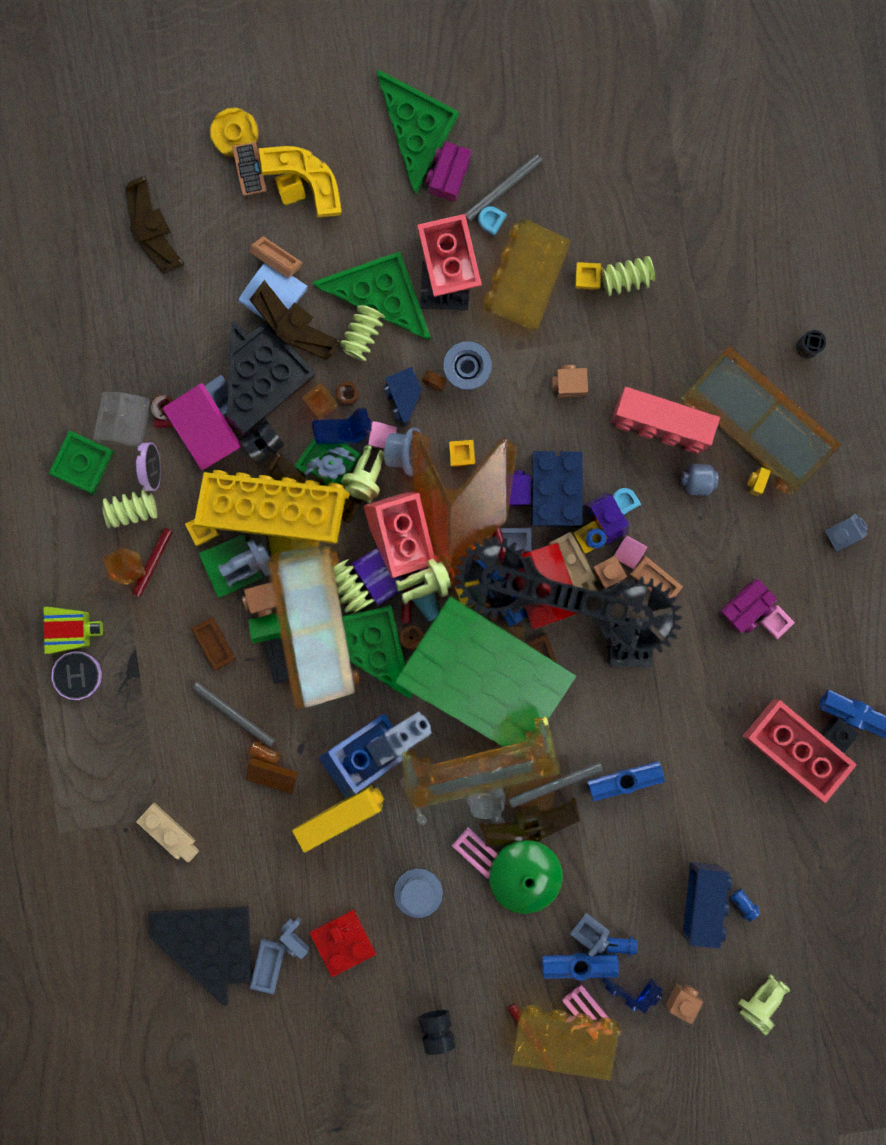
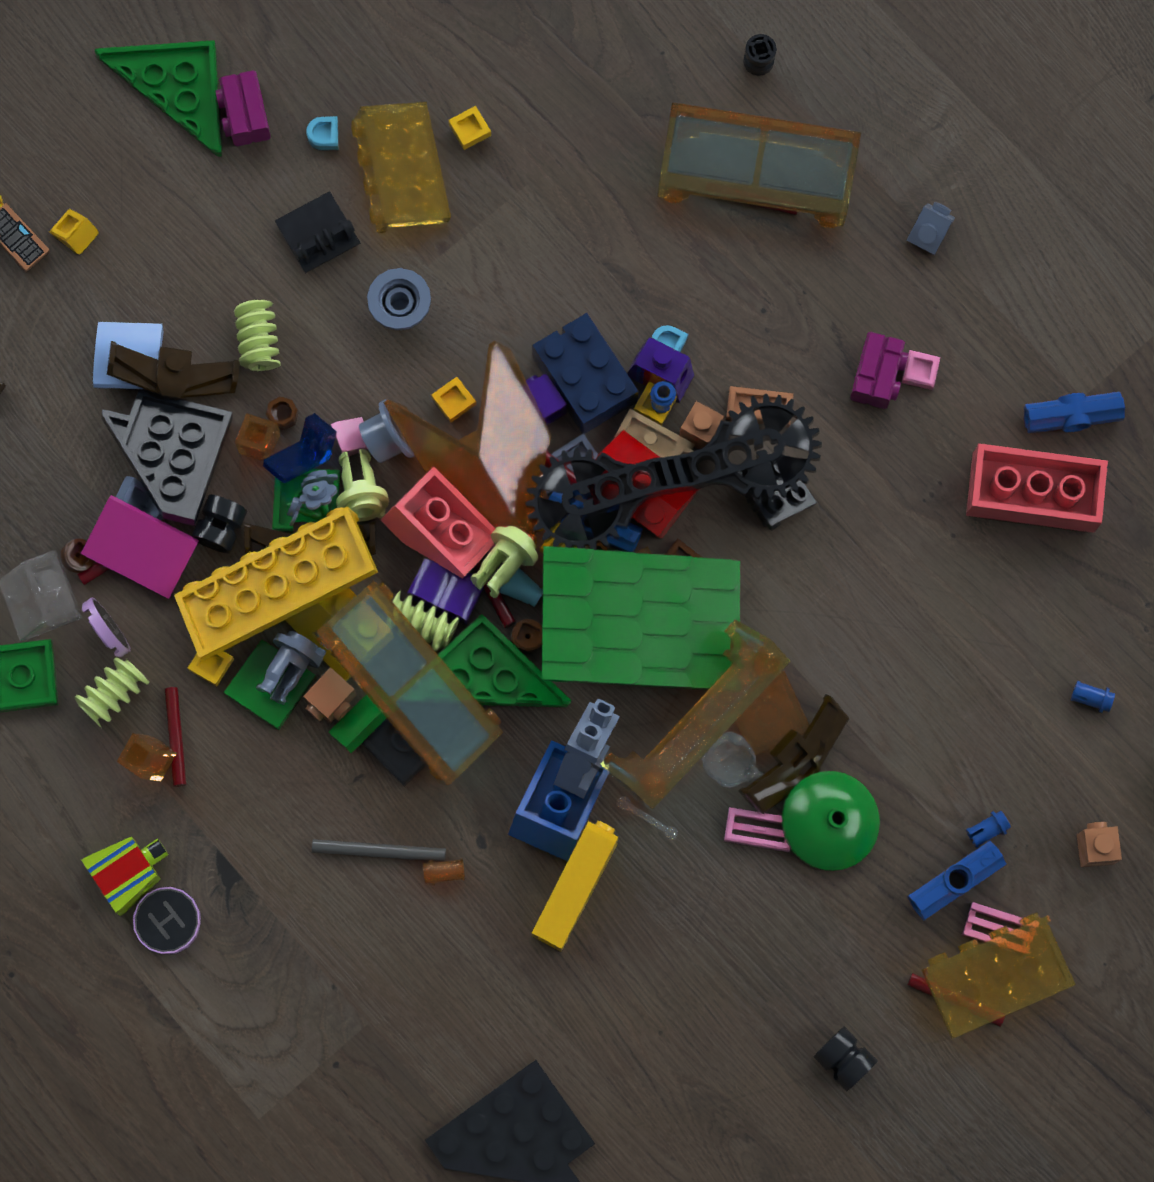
camera: 35 degrees left, 10 degrees down
(168, 833) = (388, 1034): tan hinge -> none
(213, 644) = (305, 785): reddish brown tile -> none
(267, 966) = (603, 1114): sand blue tile -> none
(271, 776) = (467, 890): reddish brown tile -> none
(275, 257) = (105, 314): nougat tile -> none
(294, 945) = (618, 1066): sand blue bracket -> none
(304, 164) = (83, 196): yellow plate -> none
(343, 943) = (672, 1030): red hinge -> none
(381, 286) = (247, 272): green tile -> none
(405, 393) = (345, 371): dark blue slope -> none
(418, 893) = (721, 919): sand blue piece -> none
(434, 381) = (371, 340): reddish brown tile -> none
(449, 255) = (301, 194): coral slope -> none
(503, 187) = (314, 91): dark grey bar -> none
(556, 784) = (796, 695): dark grey bar -> none
(570, 382) = (525, 250): nougat brick -> none
(591, 934) = (945, 836): sand blue bracket -> none
(628, 275) = (513, 100): yellowish green piece -> none
(630, 552) = (711, 390): bright pink slope -> none
(641, 776) = (857, 656): blue piece -> none
(649, 995) = (1055, 865): clear blue bracket -> none
(664, 420) = (654, 226): coral brick -> none
(699, 479) = (734, 268): sand blue head -> none
(706, 905) = (1048, 717): dark blue piece -> none
(757, 481) = (799, 231): yellow plate -> none
(839, 734) = (1068, 440): black brick -> none

